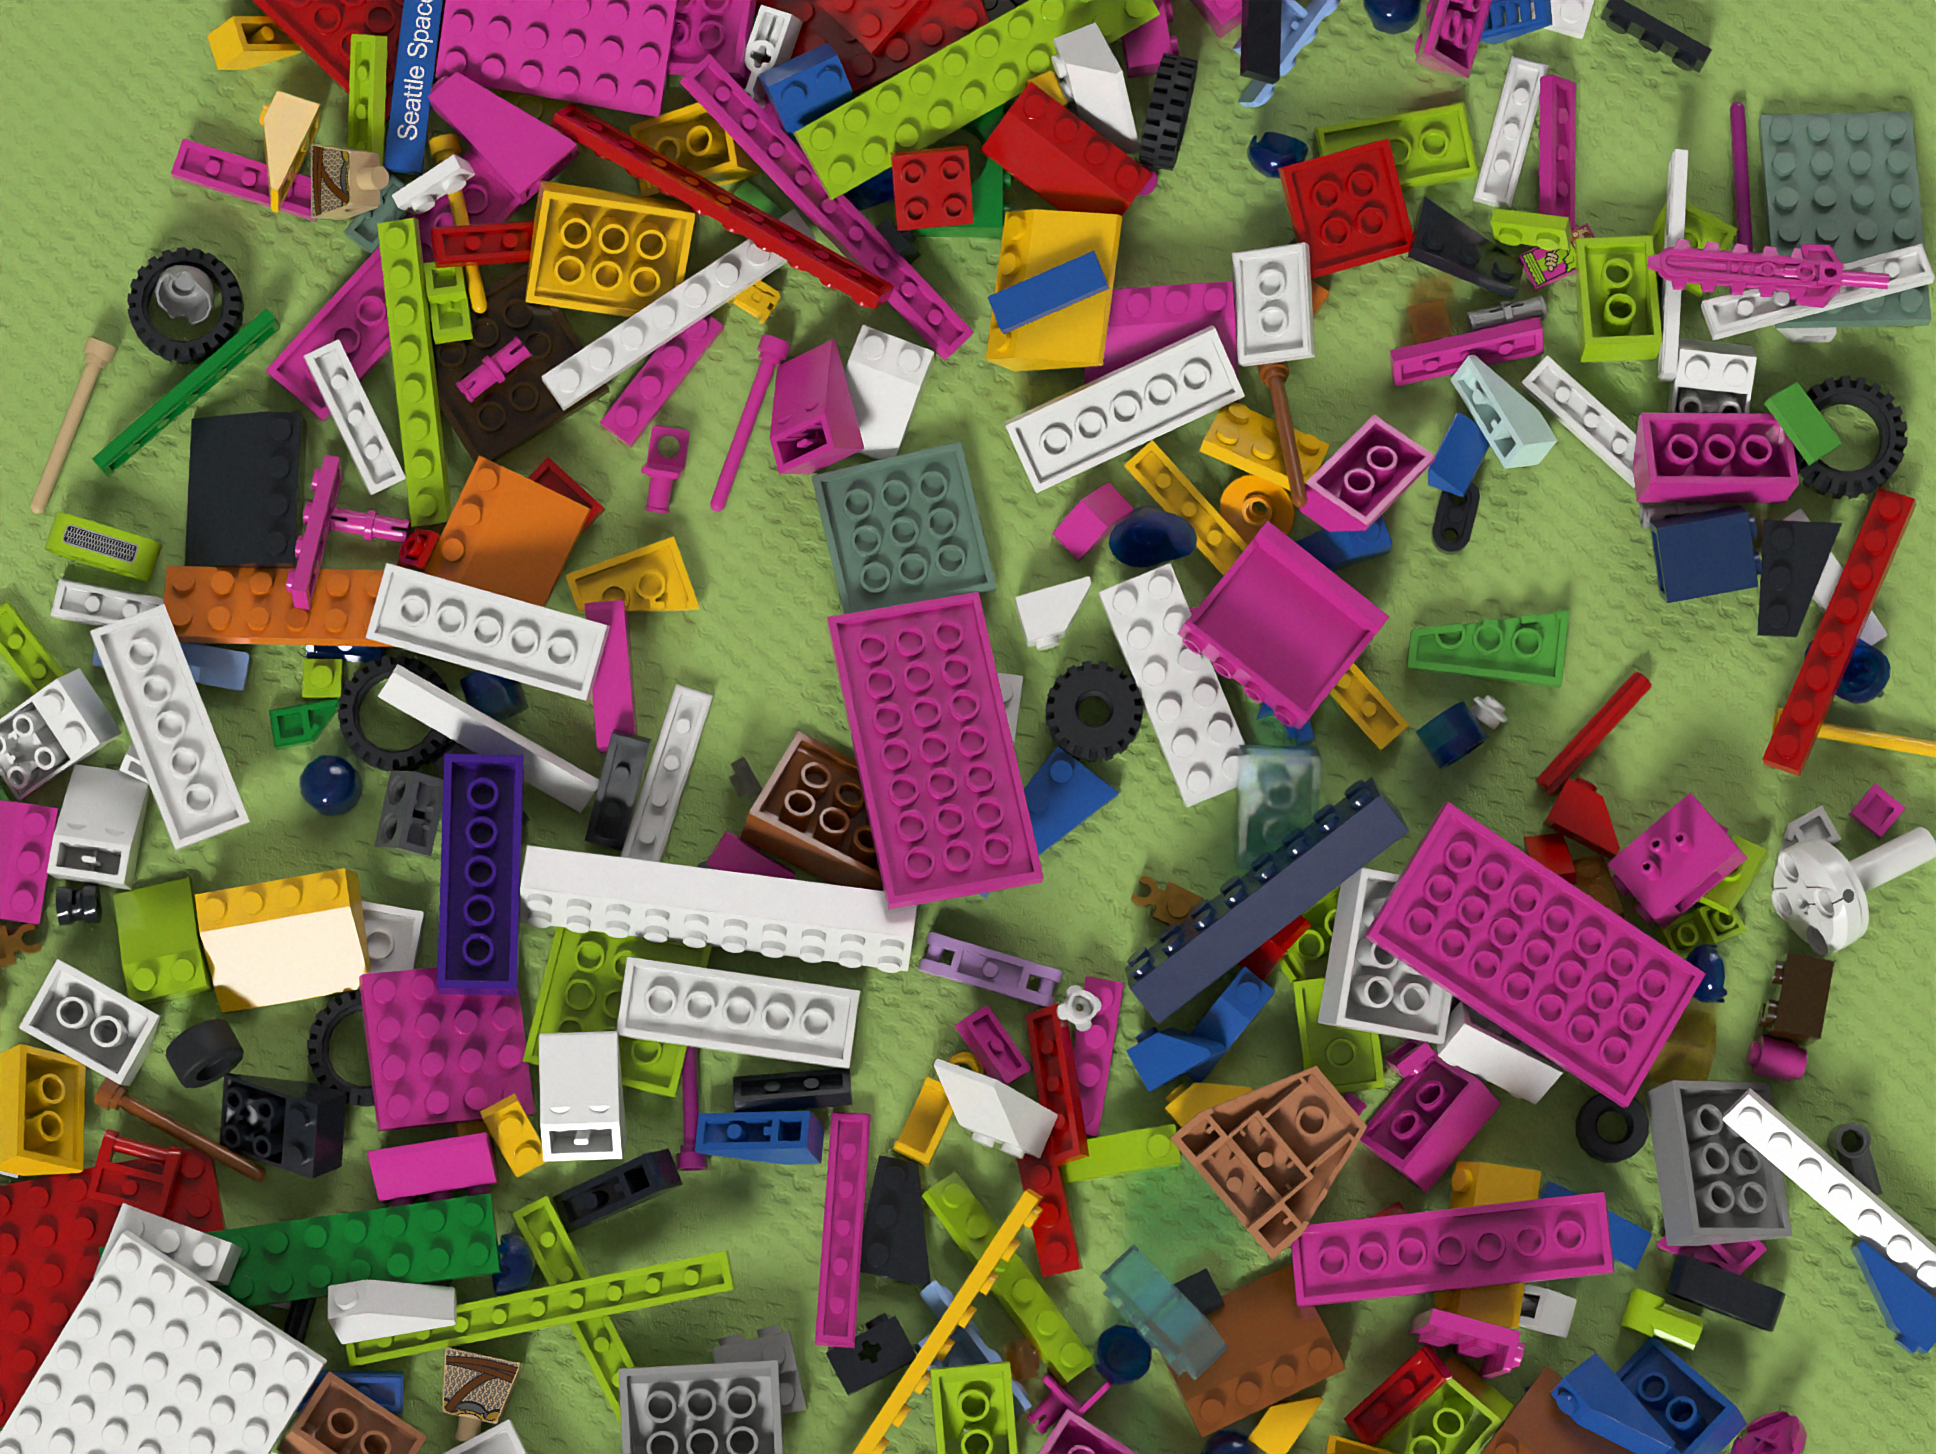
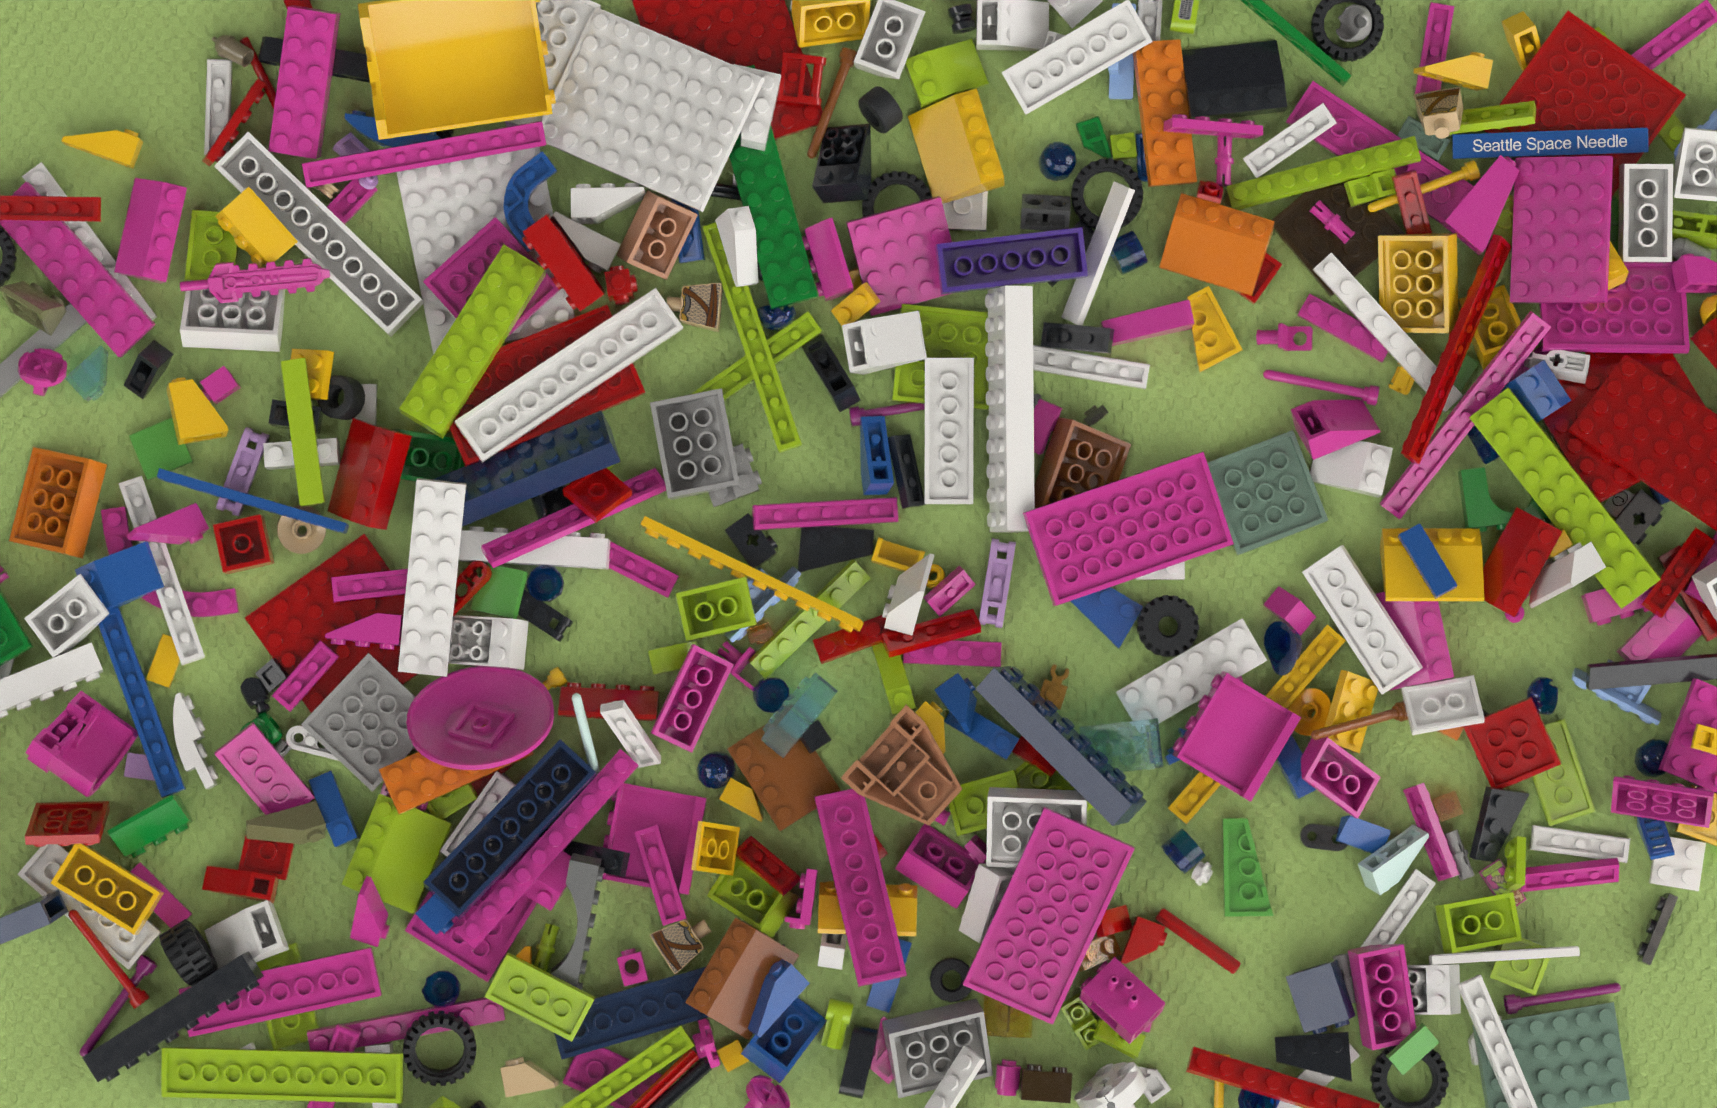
camera: 80 degrees right, 5 degrees up
(441, 180) = (1448, 172): white plate -> none
(488, 632) = (1162, 242): white plate -> none
(899, 240) = (1452, 464): black plate -> none
(932, 188) = (1485, 479): red plate -> none
(1051, 611) = (1226, 591): white slope -> none
(1088, 1002) = (982, 647): white plate -> none
(1168, 111) = (1557, 622): black tyre -> none
(1709, 961) = (1060, 1026): clear blue hair -> none
(1809, 274) = (1505, 1040): dark pink bar -> none

